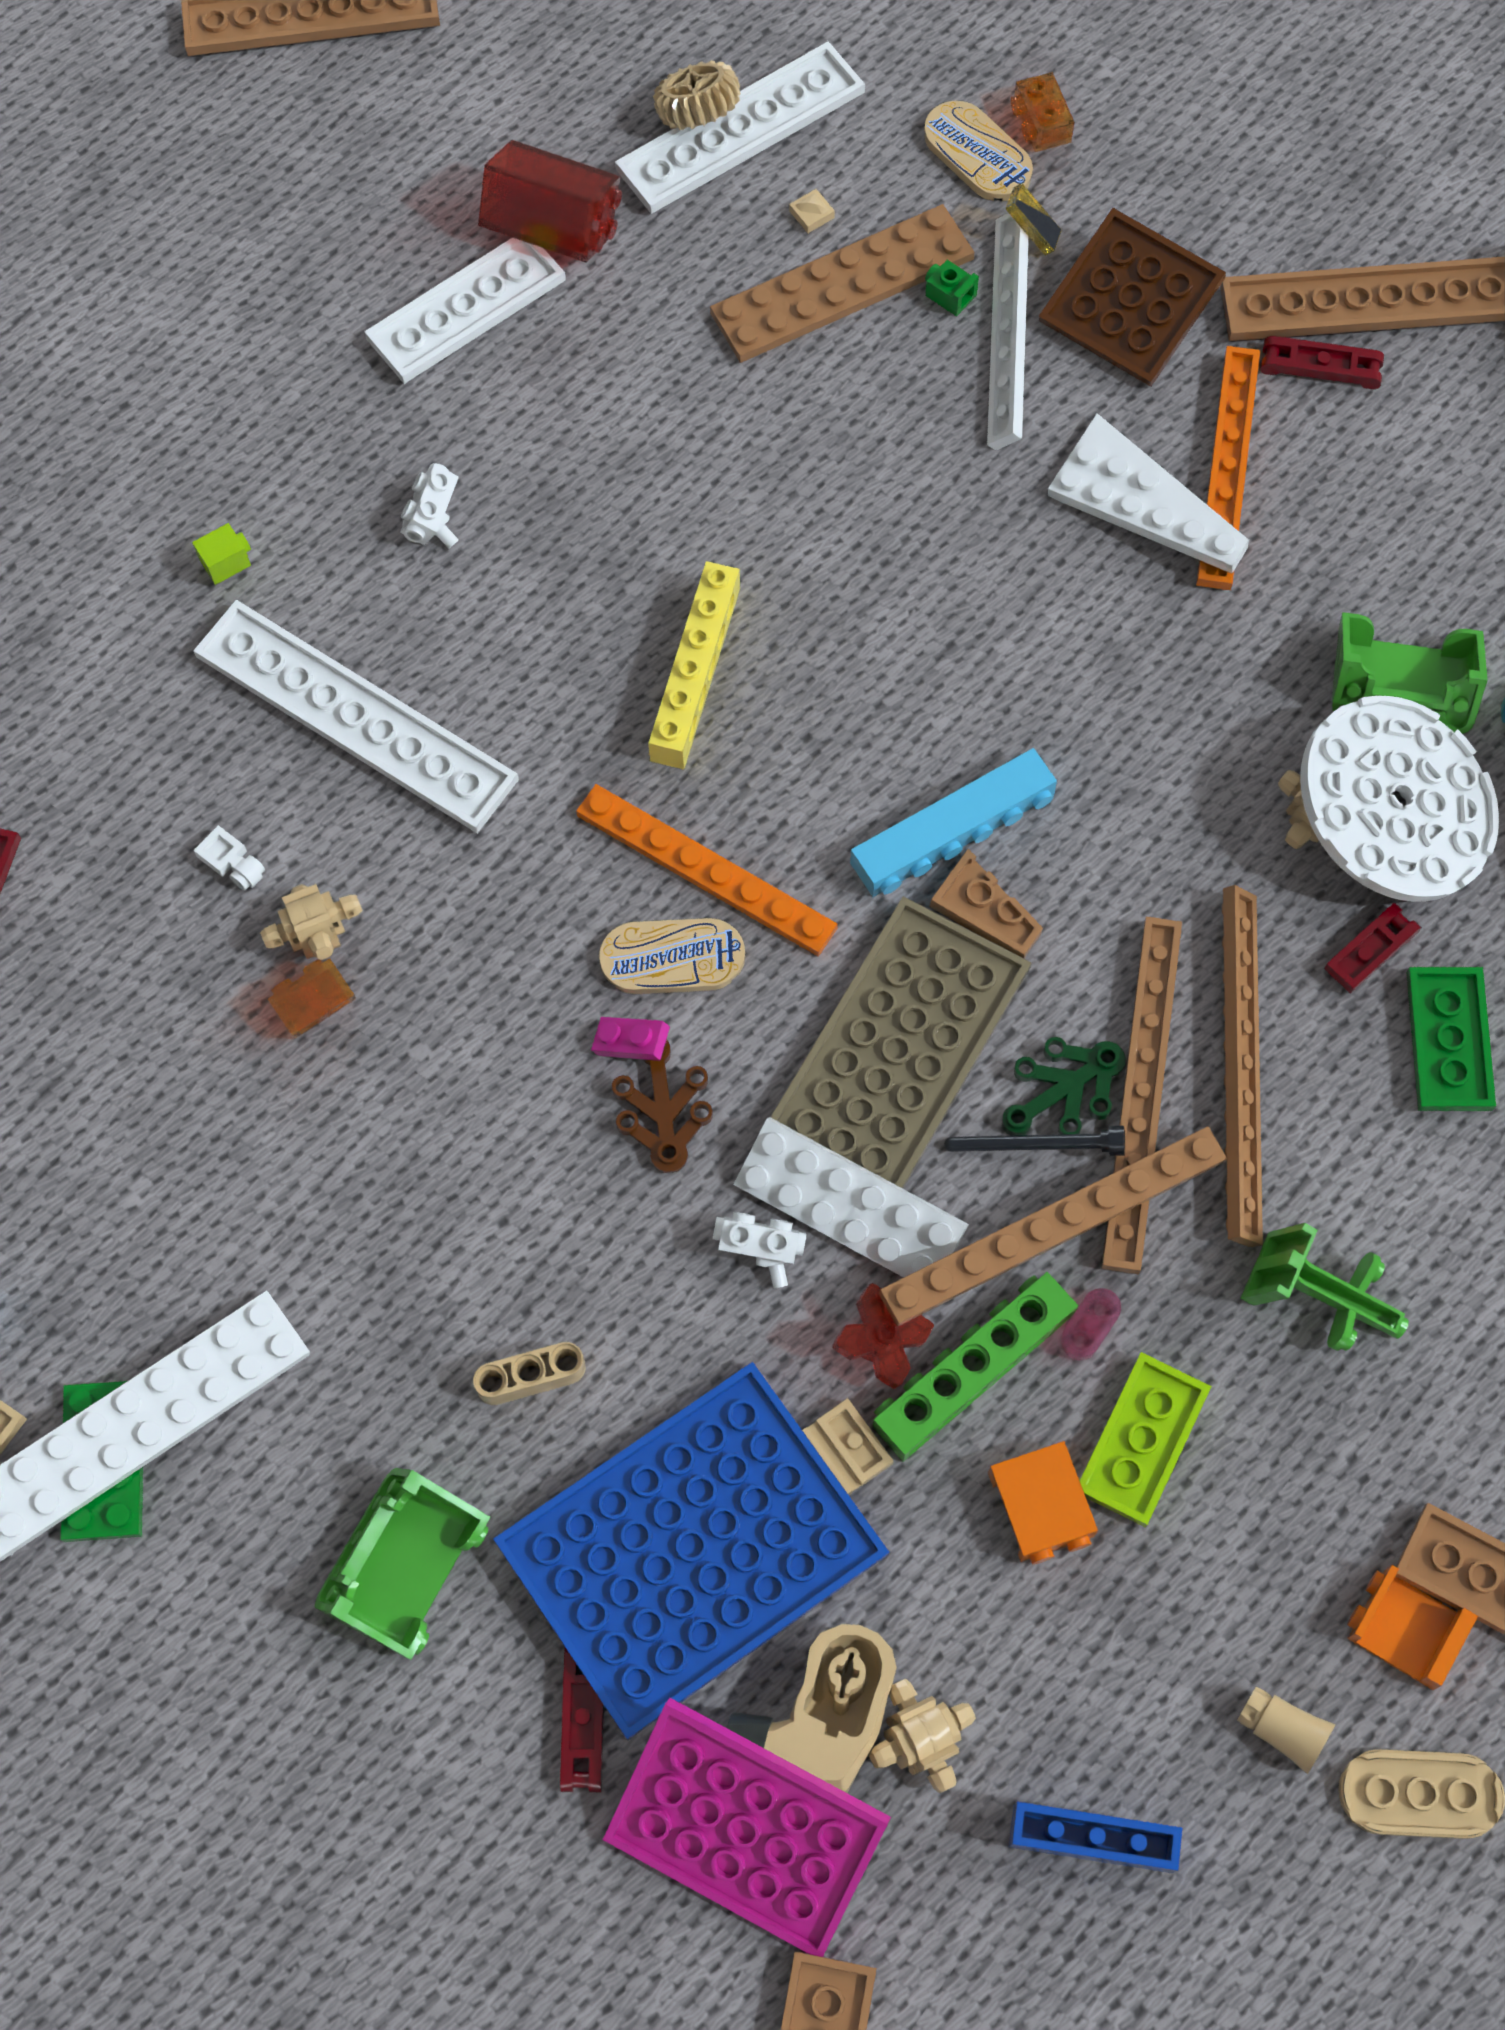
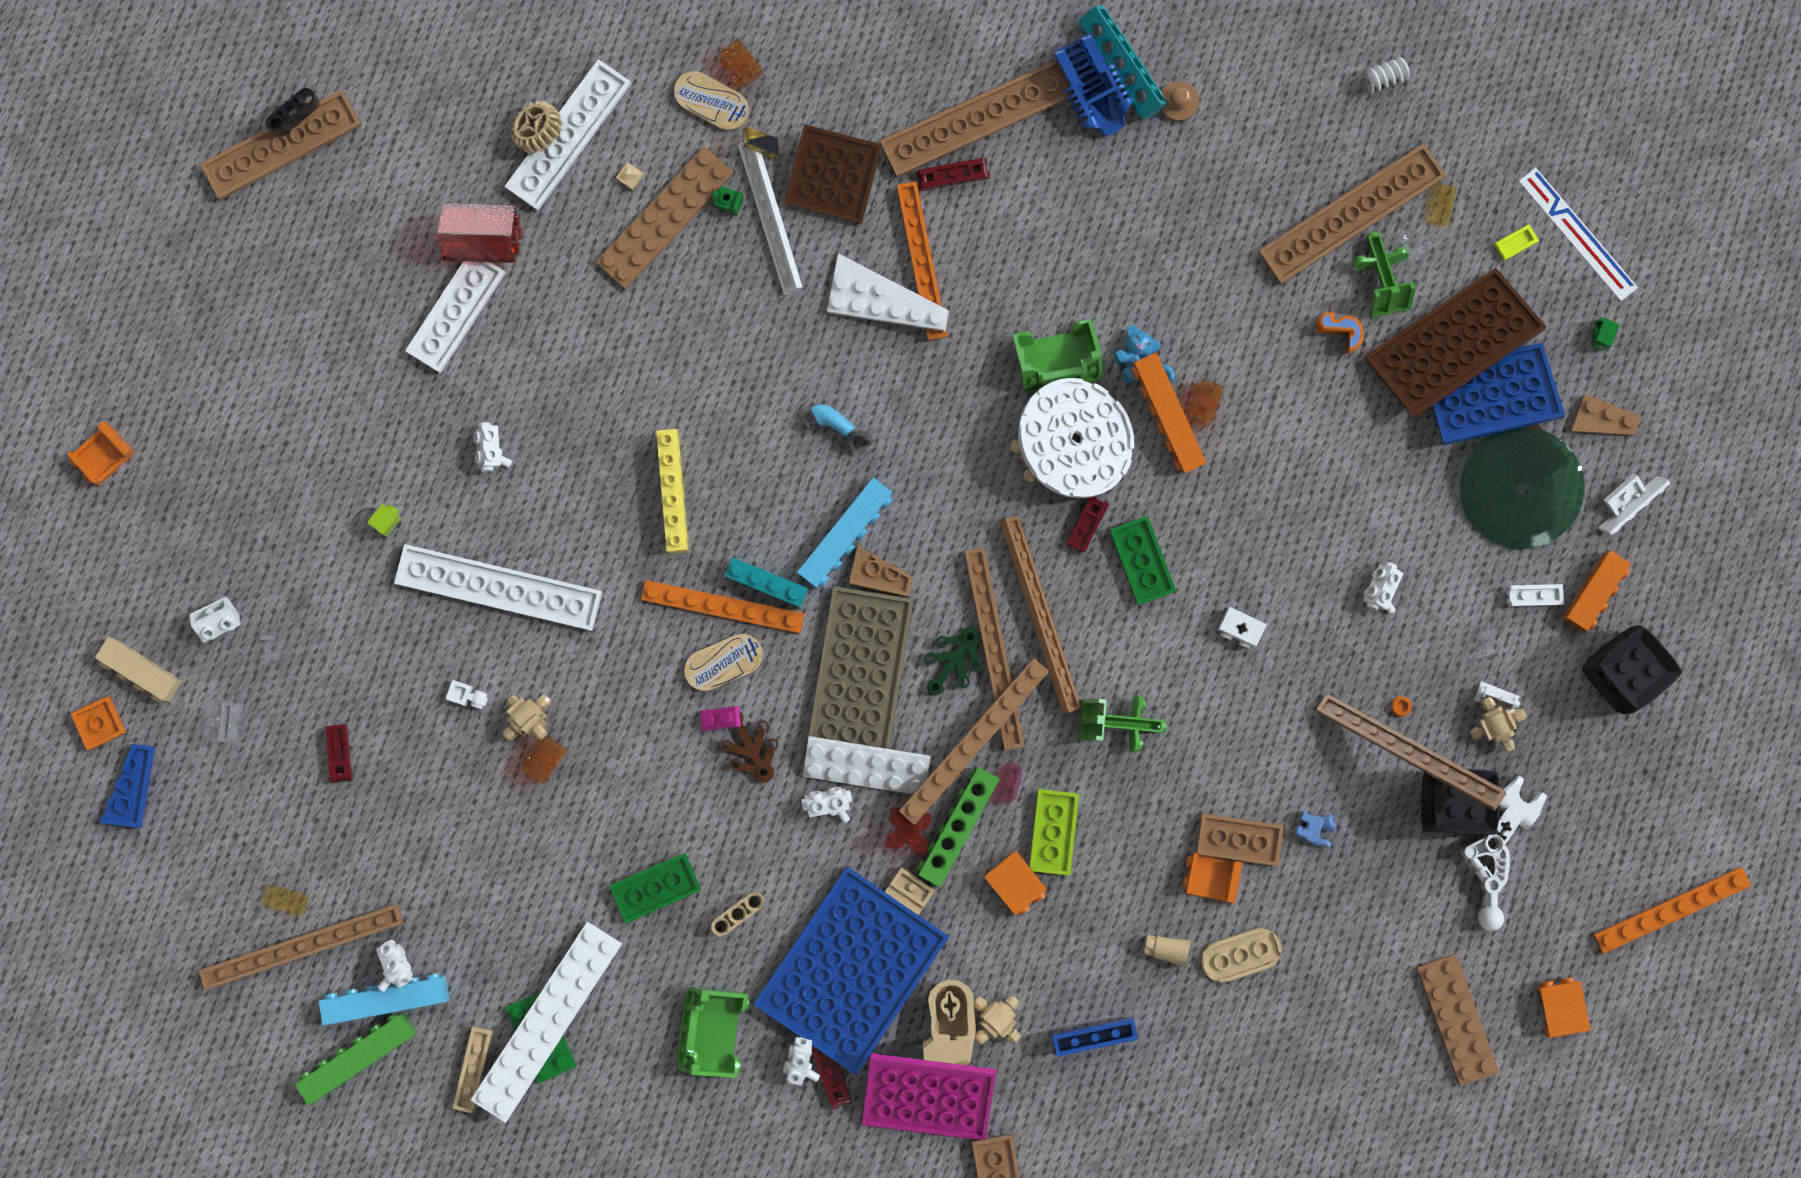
camera: 25 degrees left, 15 degrees up
(406, 1278) = (655, 888): none -> green plate
(528, 1682) = (798, 1065): none -> white brick
(793, 853) = (766, 583): none -> teal brick
(993, 637) = (826, 415): none -> medium azure piece
(1109, 1141) = (987, 684): black piece -> none

